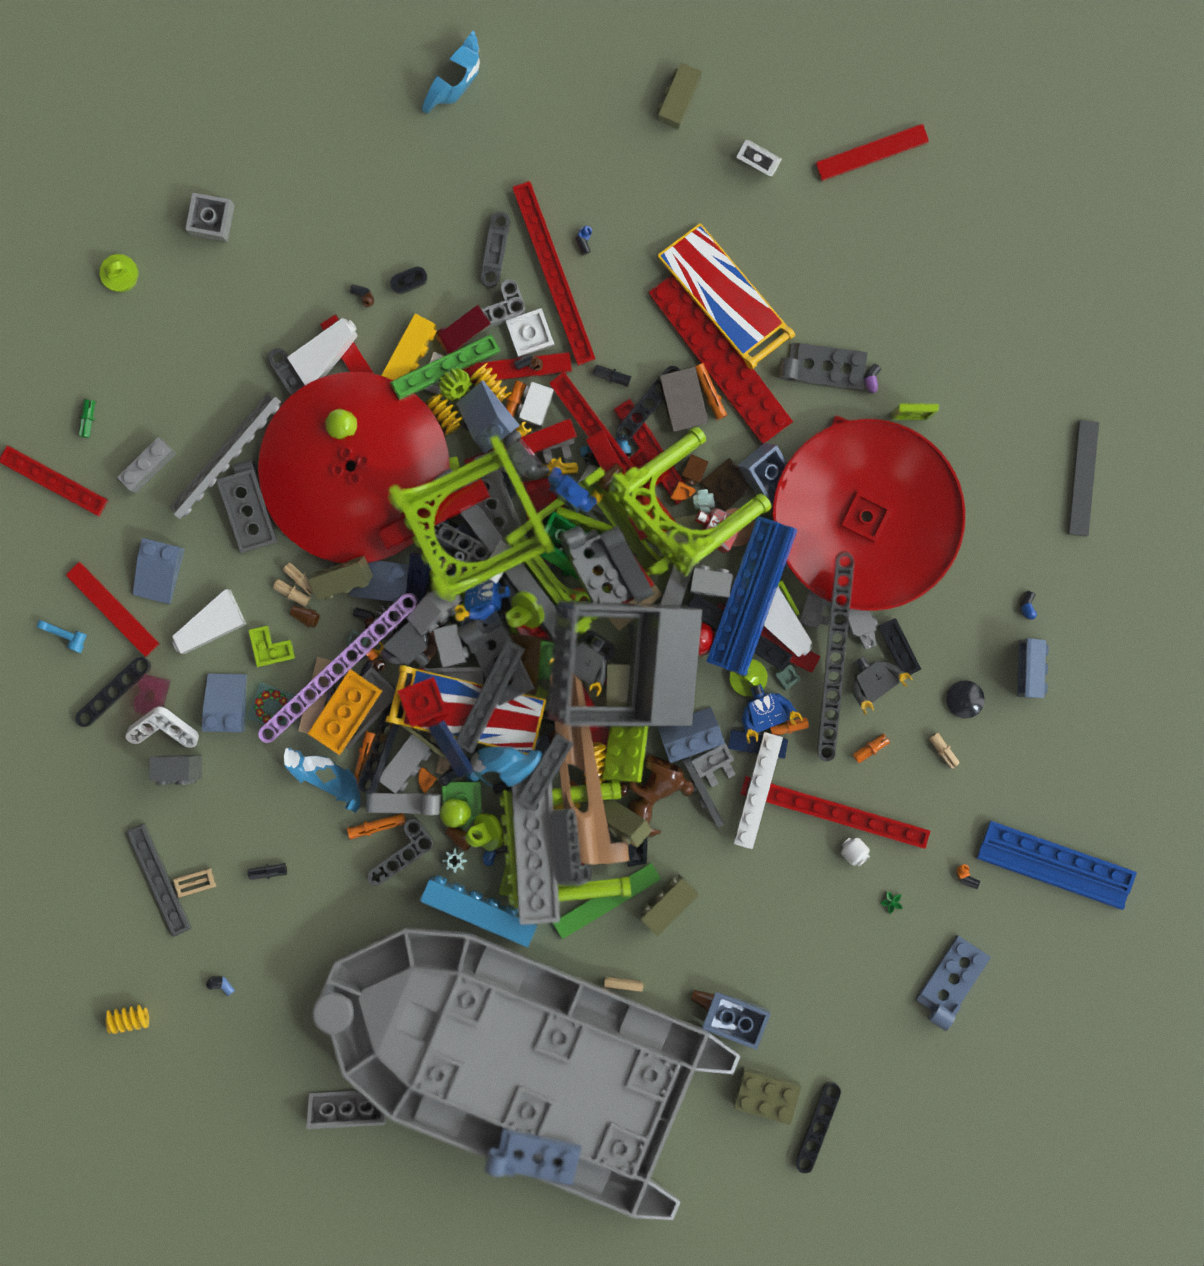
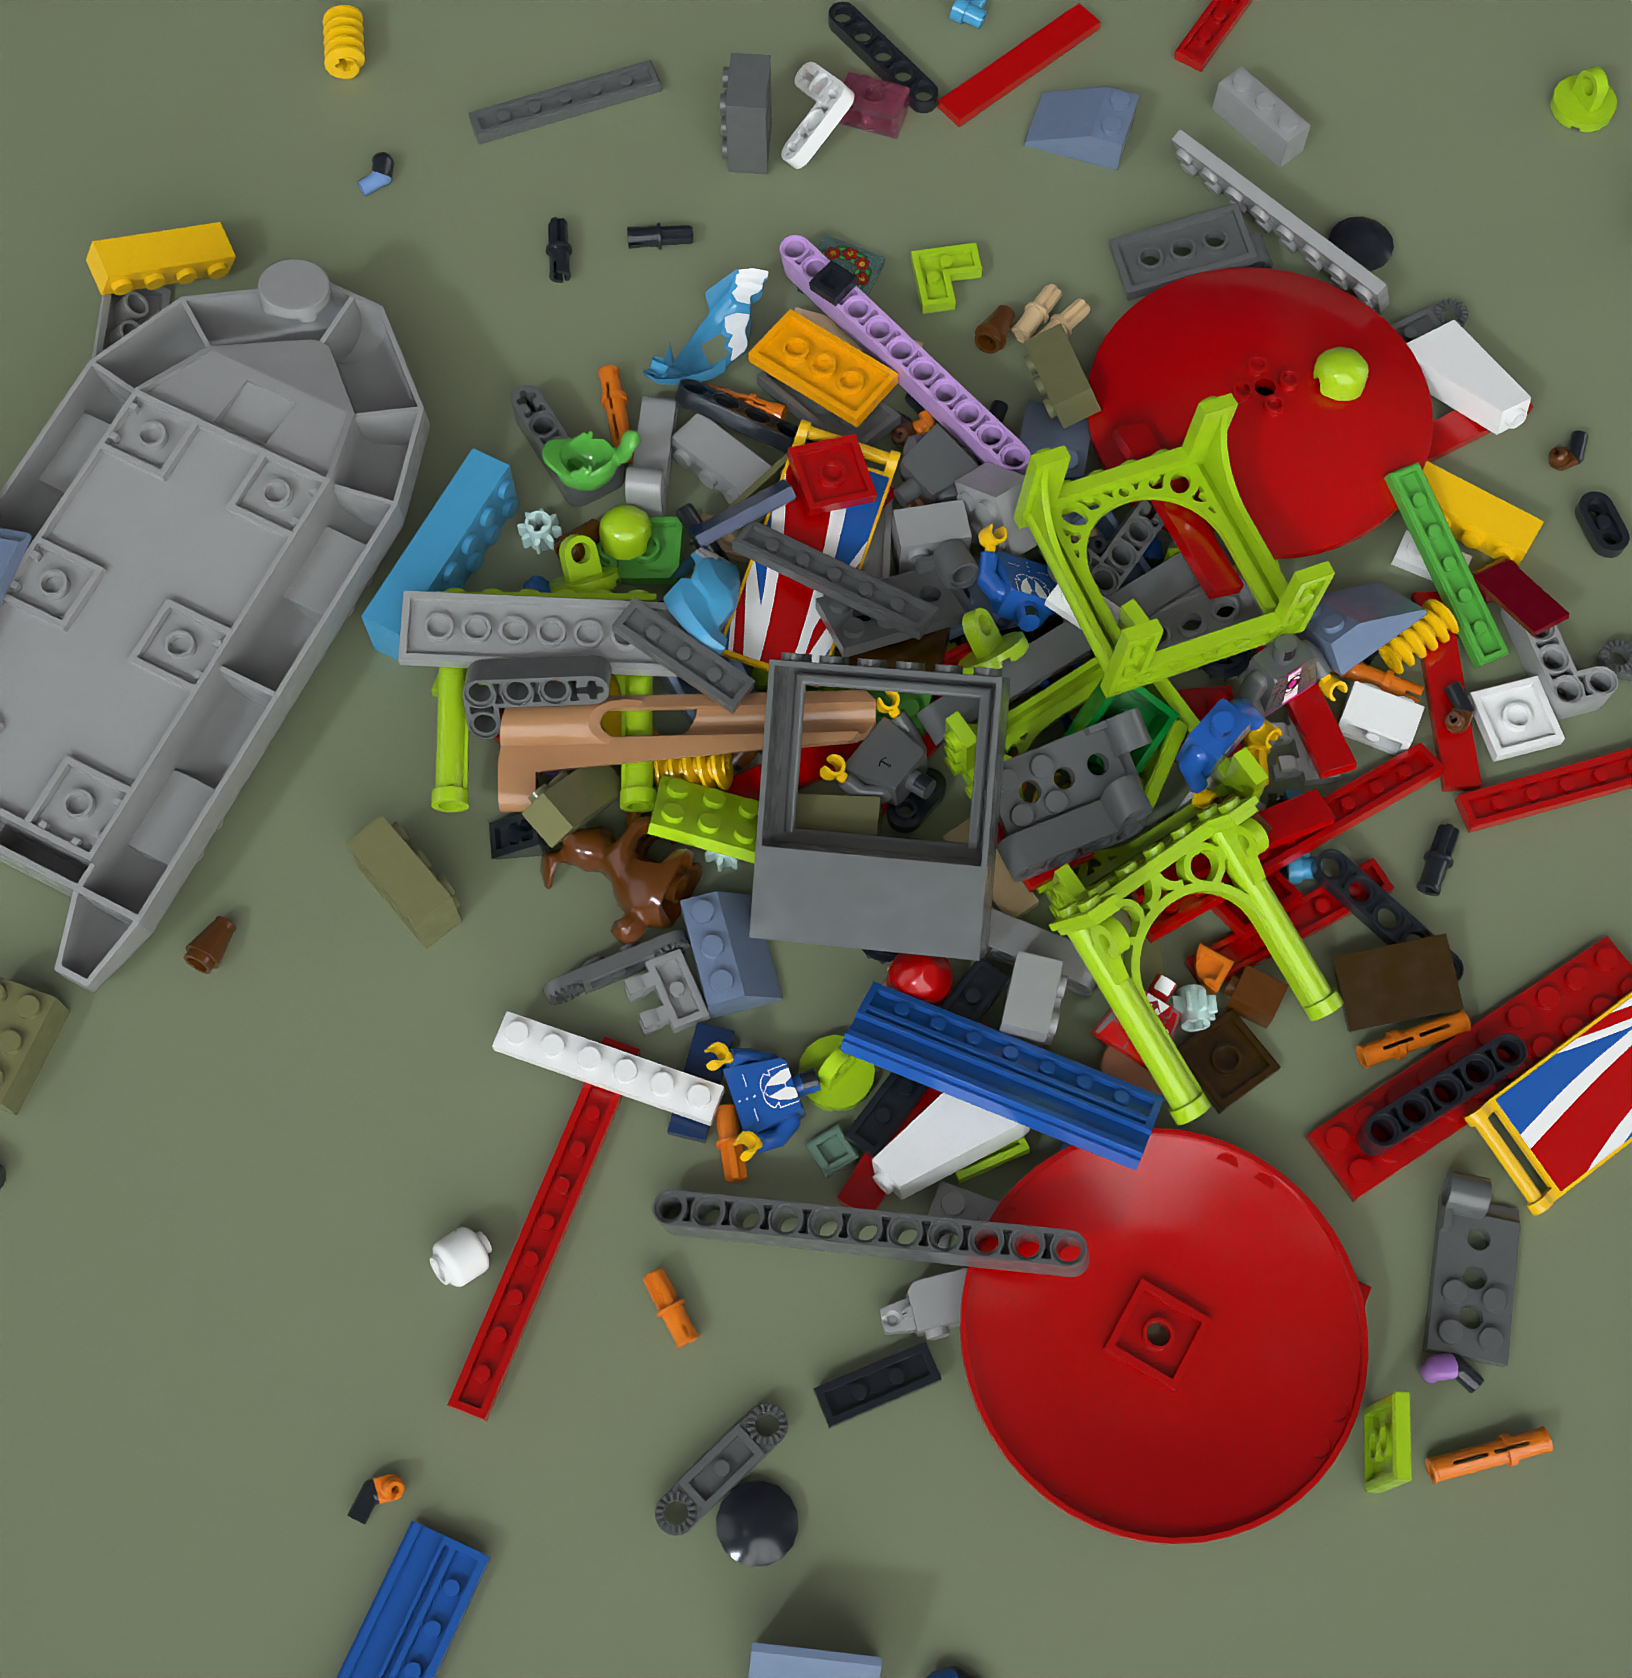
camera: 90 degrees right, 20 degrees down
(86, 418) = (1337, 44): green axle -> none
(210, 878) = (558, 169): tan tile -> none
(211, 623) = (990, 192): white slope -> none
(225, 703) = (850, 204): sand blue slope -> none
(230, 407) = (1363, 241): none -> black dish
(253, 813) = (657, 236): none -> black axle
(294, 709) = (833, 283): none -> black tile
(300, 1098) = (160, 258): none -> yellow brick
(421, 837) = (587, 461): none -> bright green piece
(426, 779) = (697, 496): orange tile -> none
(444, 414) = (1361, 560): yellow piece -> none
(454, 384) = (1416, 573): lime gear -> none
(597, 907) = (418, 760): bright green tile -> none
(625, 984) = (268, 797): tan tile -> none
(736, 1020) = (159, 994): sand blue slope -> none
(742, 370) = (1454, 1082): none -> black beam
(764, 470) = (1259, 1123): sand blue slope -> none
(875, 681) = (809, 1324): dark grey torso -> none
(892, 902) = (347, 1330): green plant -> none
(902, 341) = (1533, 1442): none -> orange pin
(943, 717) = (721, 1469): none -> dark grey plate
(944, 750) = (651, 1466): tan axle -> none
(945, 1010) = (104, 1426): sand blue hinge -> none

